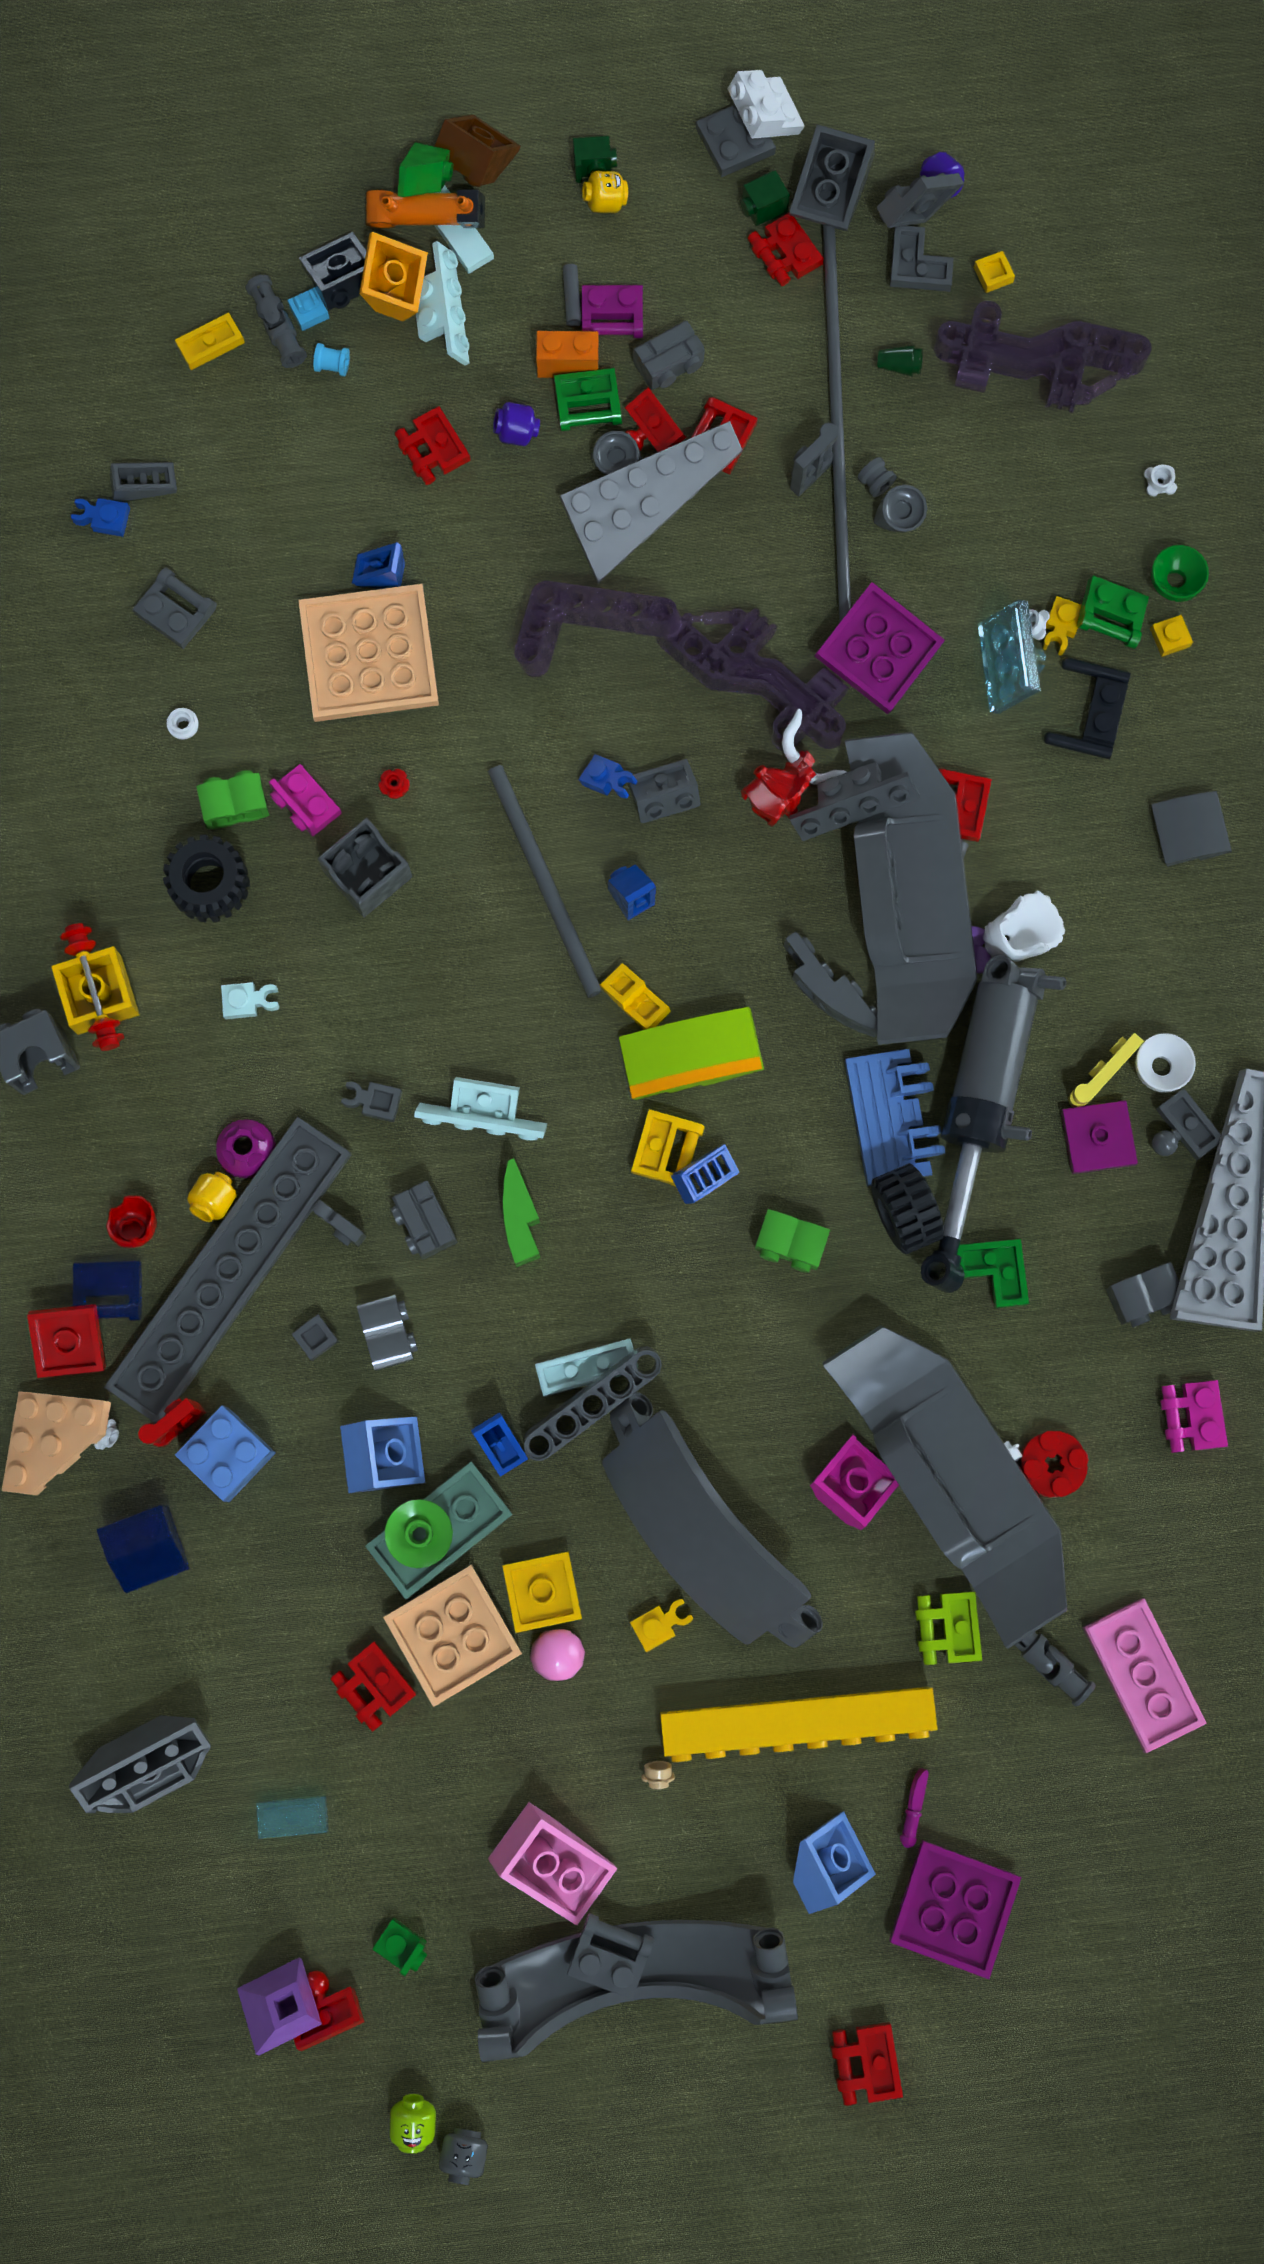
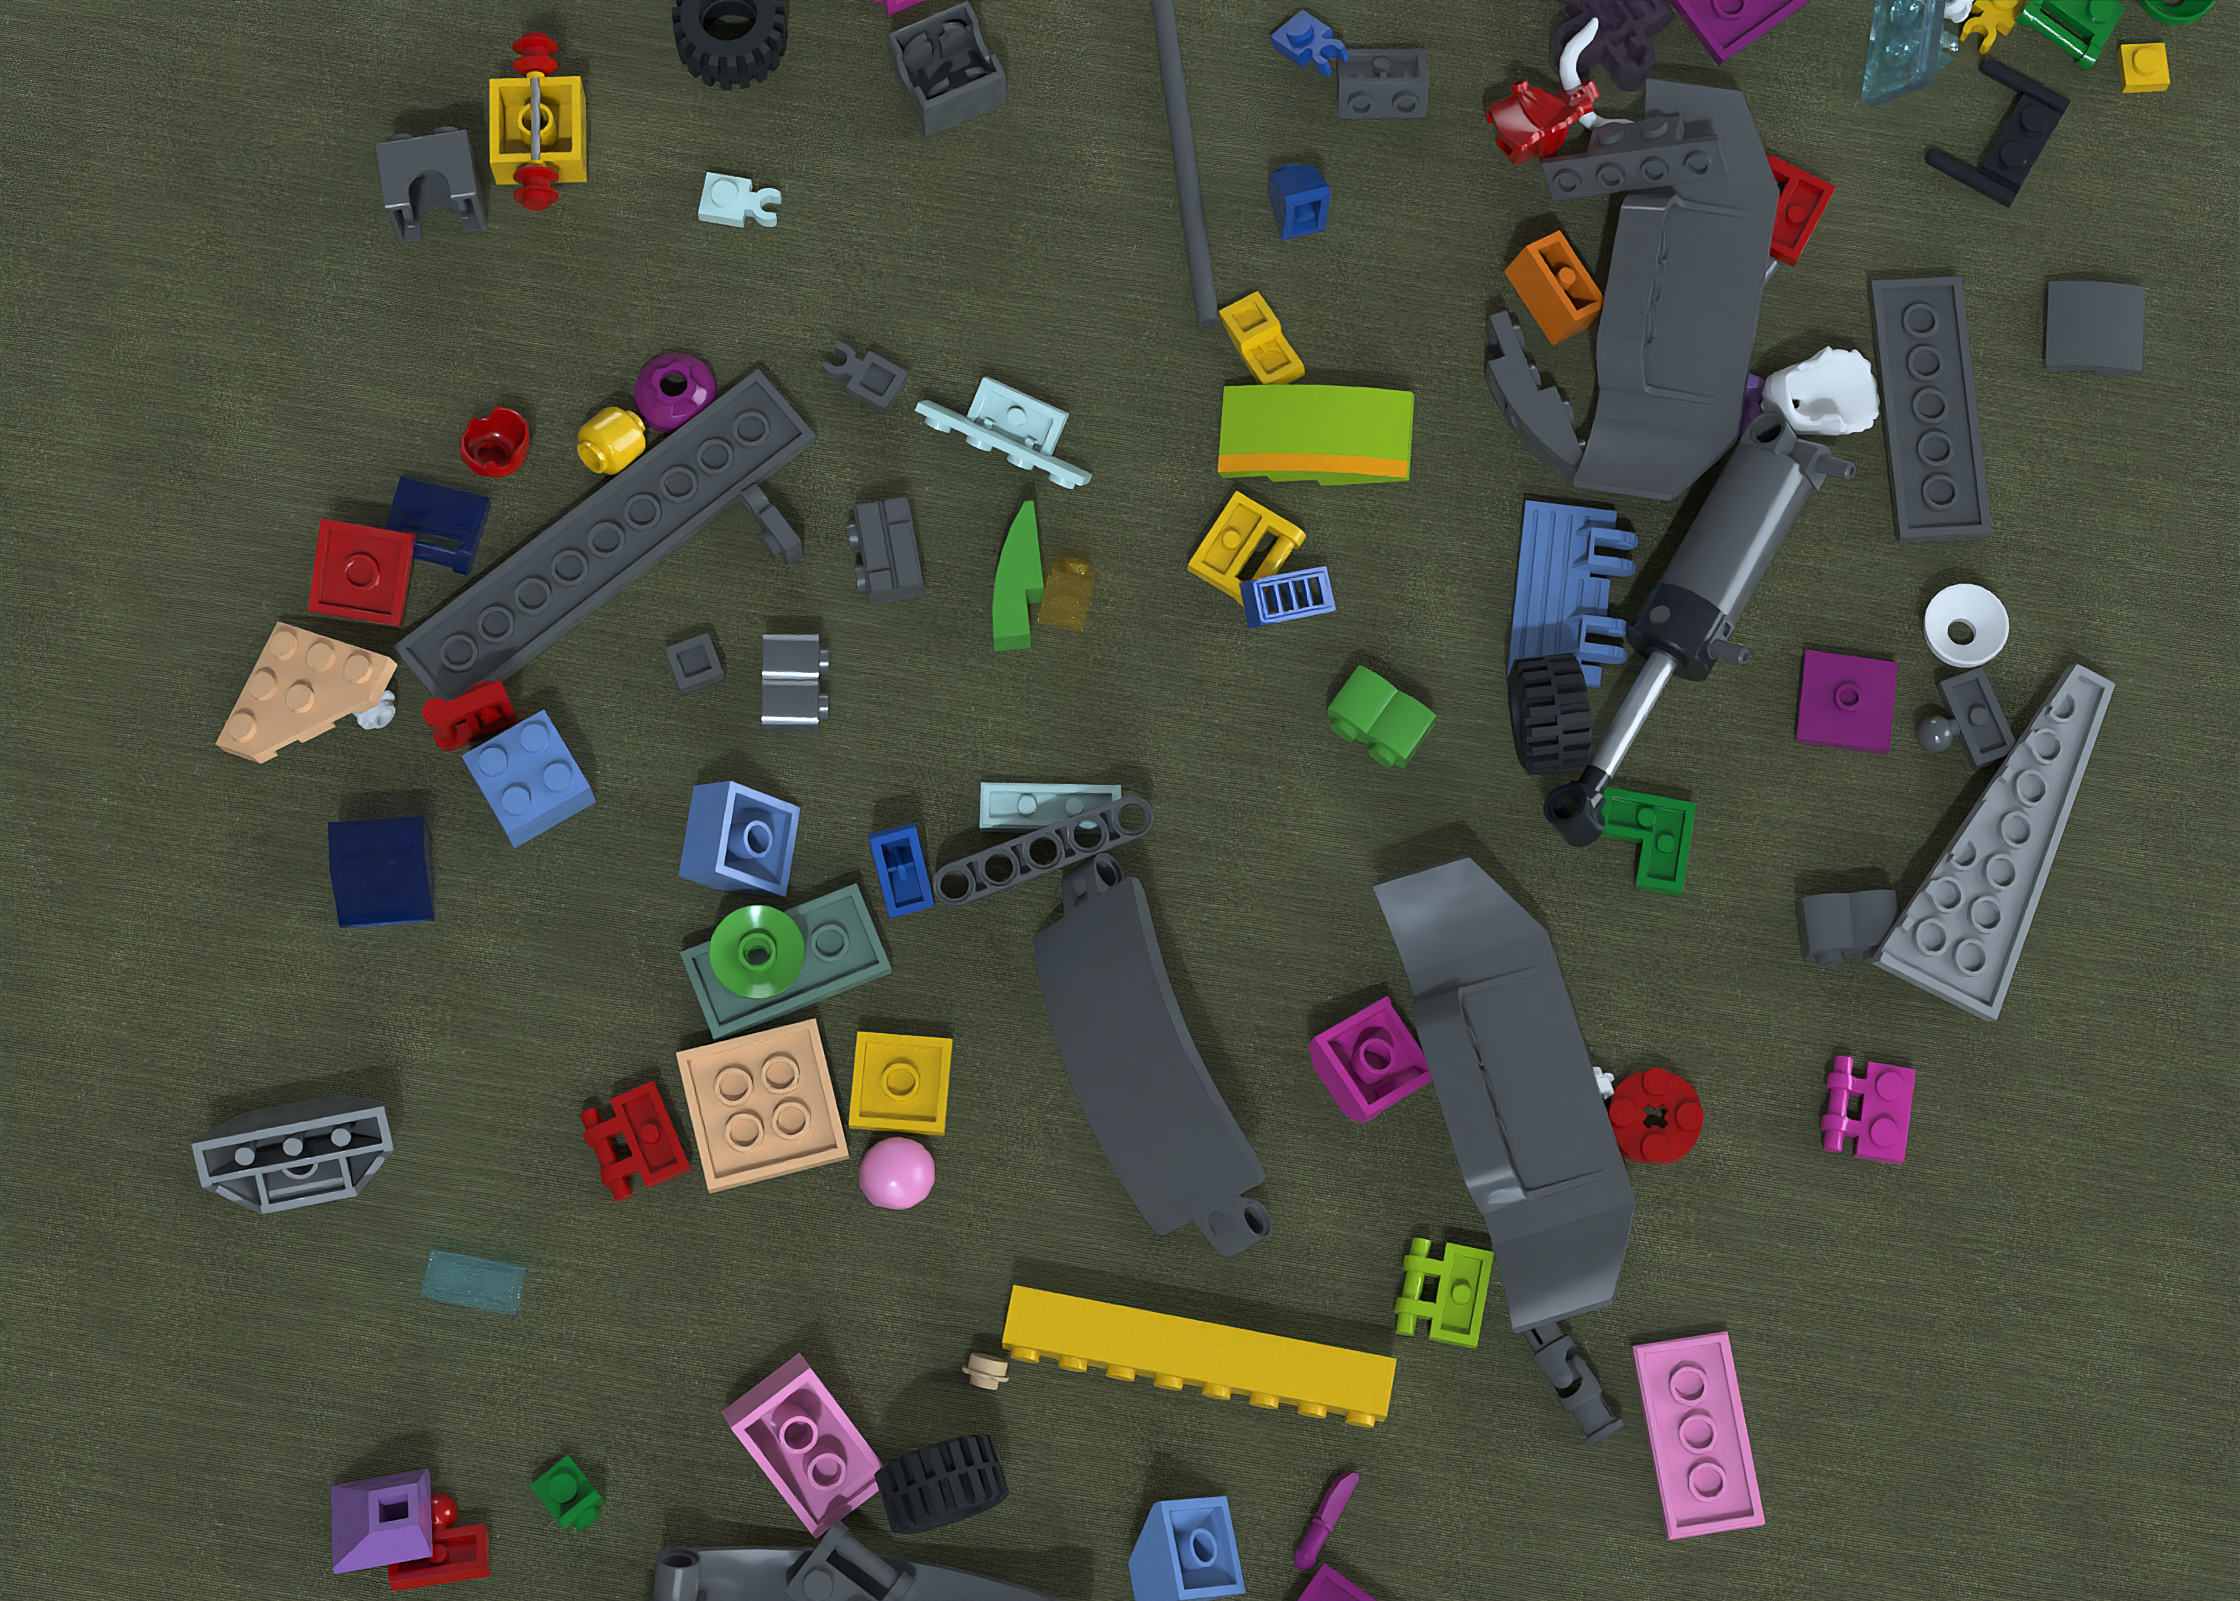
camera: 15 degrees right, 5 degrees down
(555, 1214) = (1068, 594): none -> clear yellow bracket
(653, 1870) = (941, 1484): none -> black tyre
(655, 1626) = (1041, 1176): yellow plate -> none
(824, 904) = (1555, 287): none -> orange brick
(1097, 917) = (1929, 410): none -> dark grey plate
(1104, 1071) = (1880, 615): light yellow plate -> none

